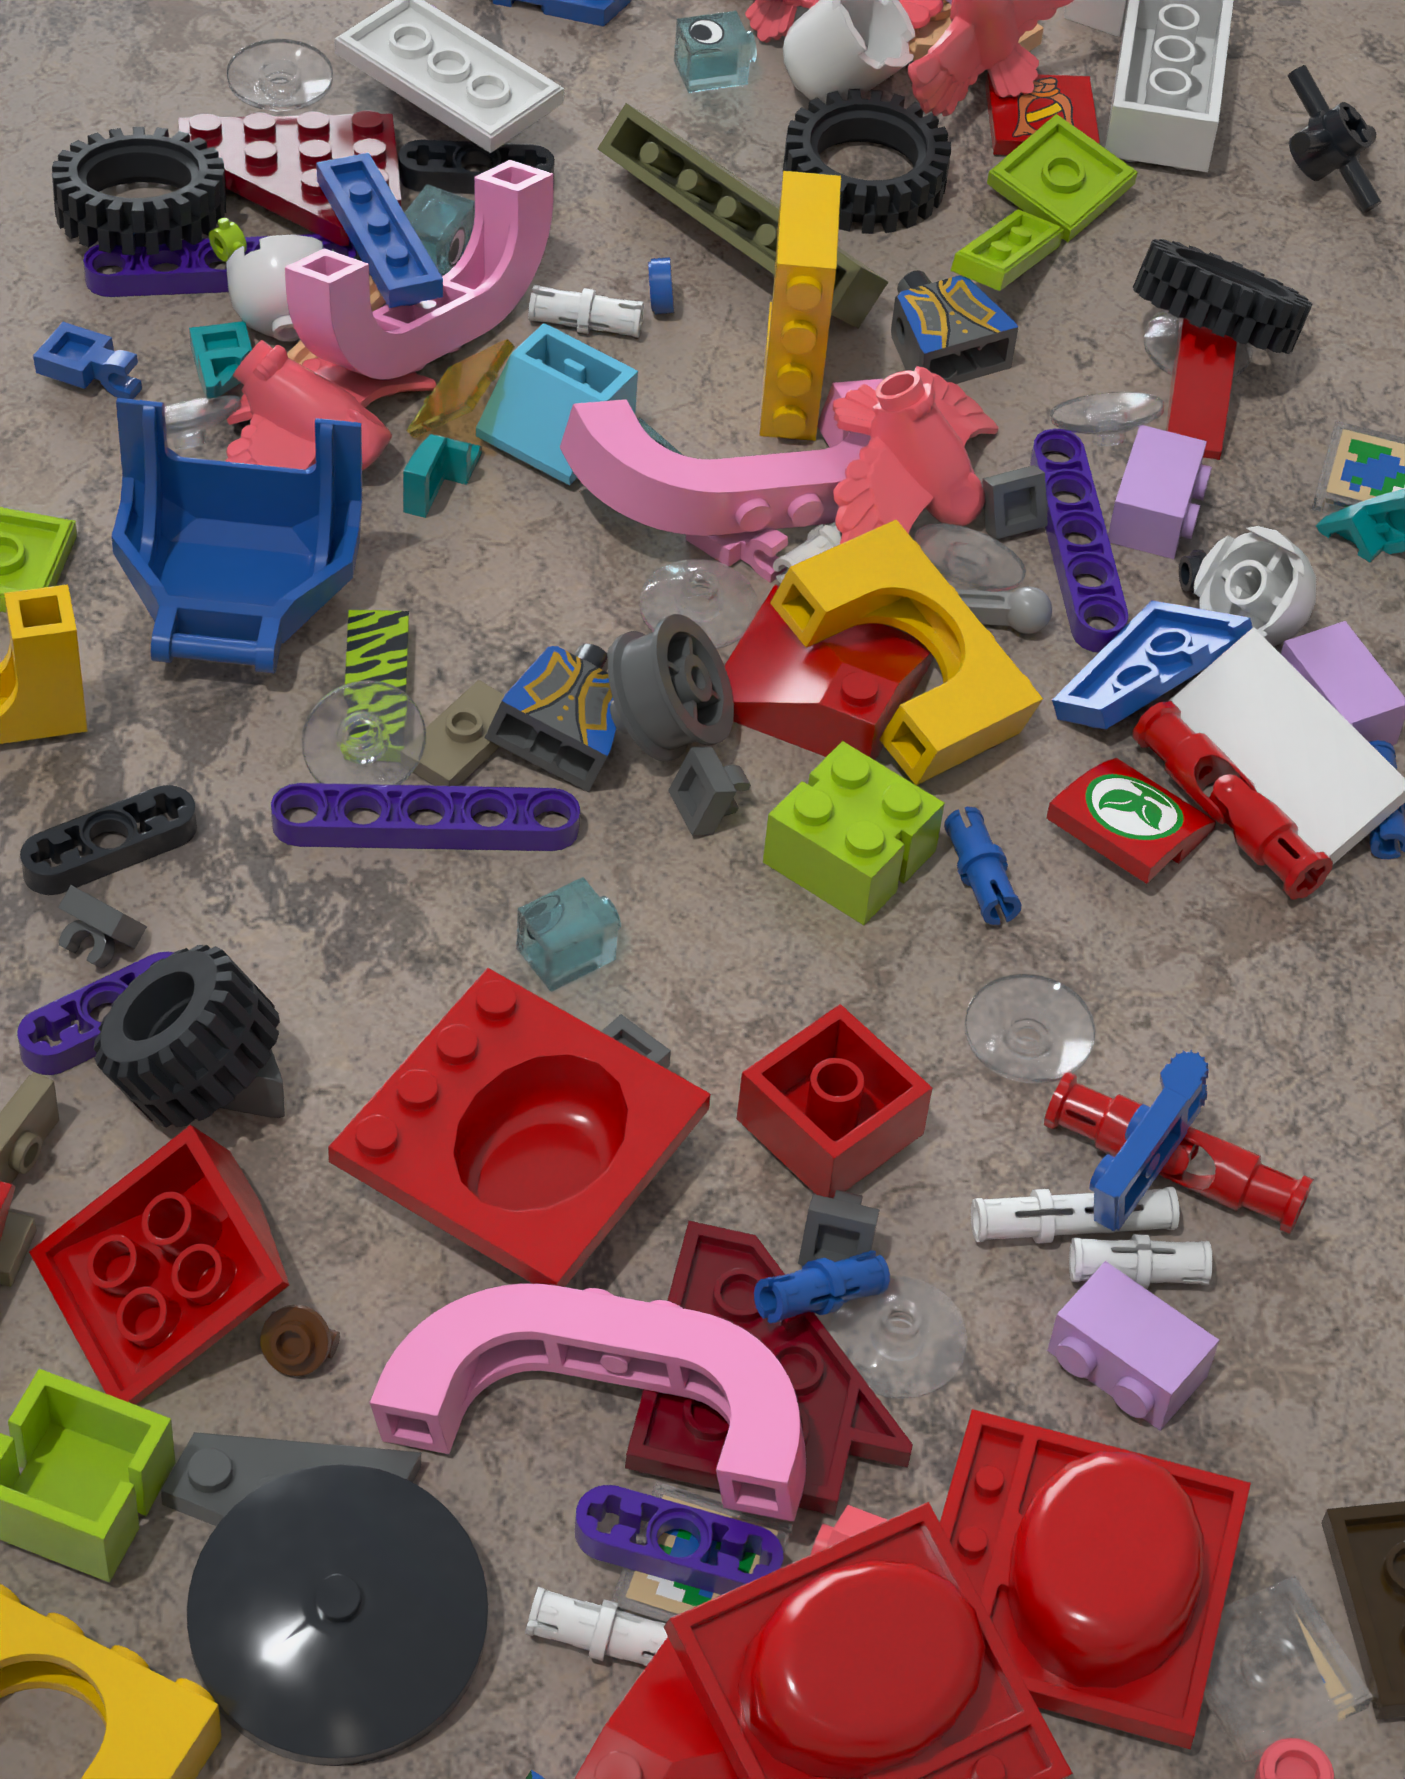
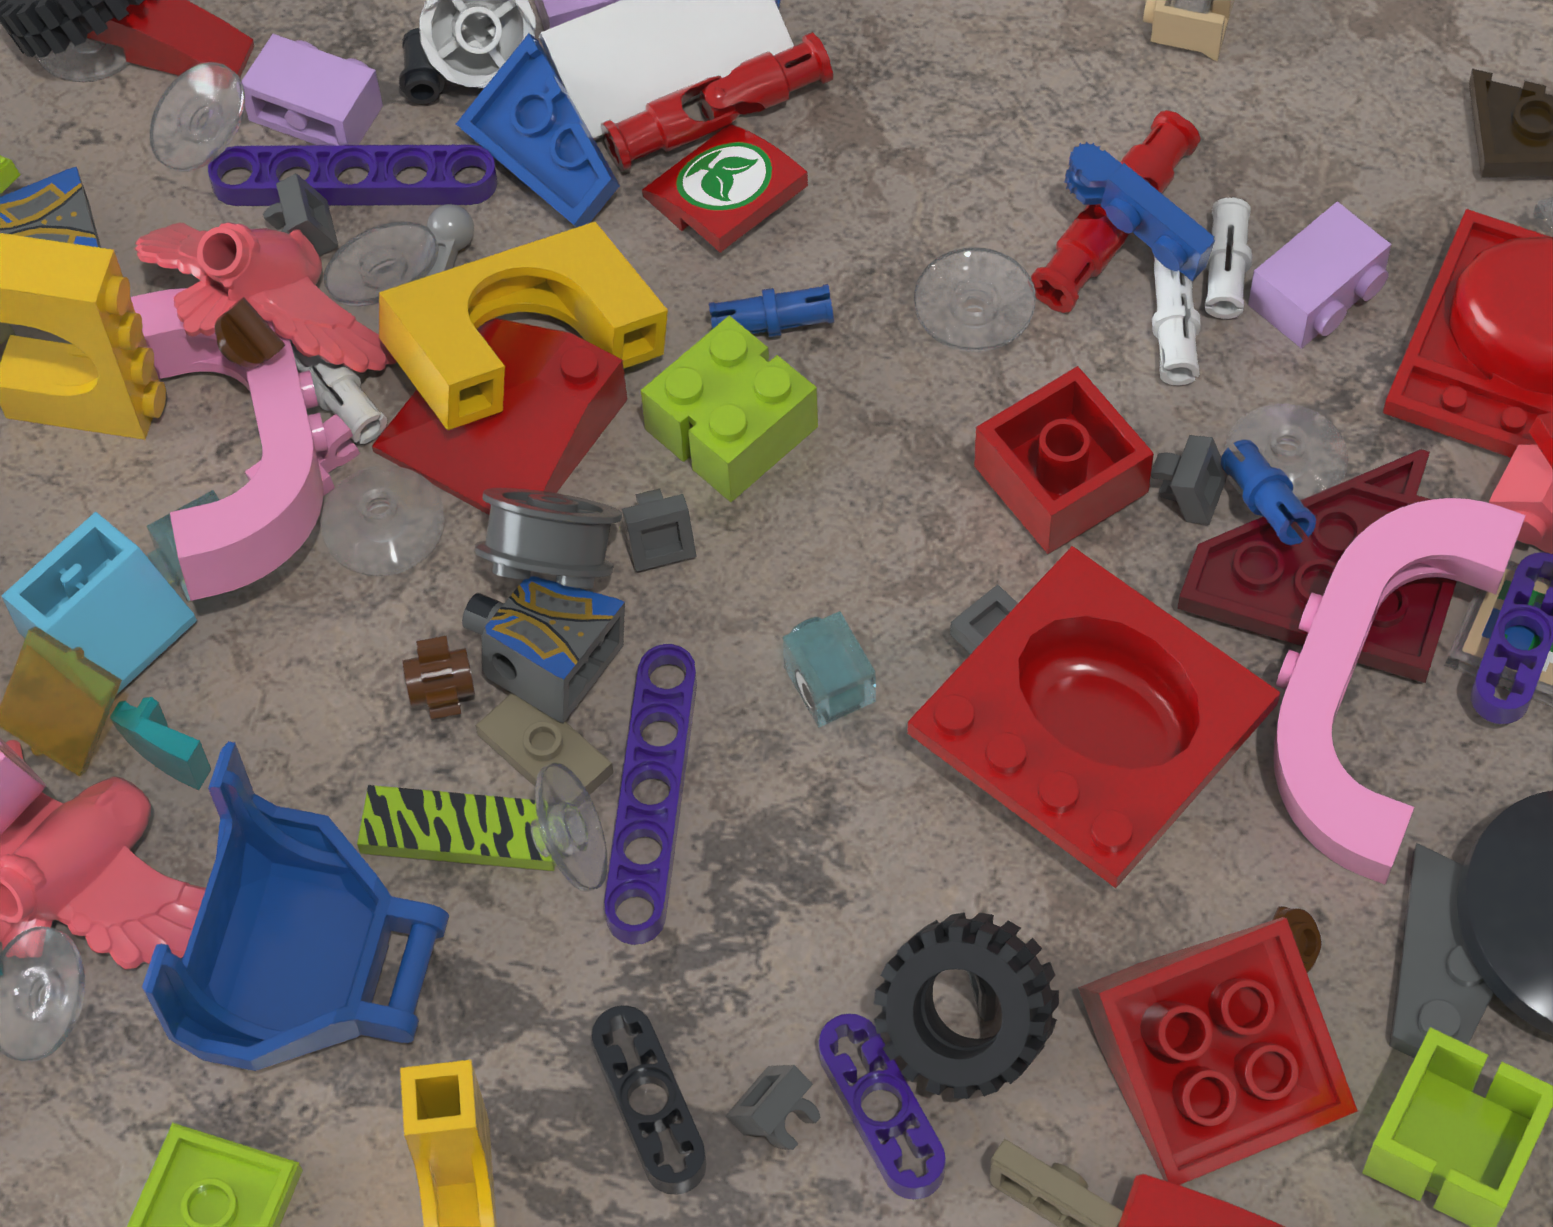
camera: 75 degrees left, 10 degrees up
(517, 639) = (438, 677): none -> reddish brown gear
(829, 433) = (246, 336): none -> reddish brown plate

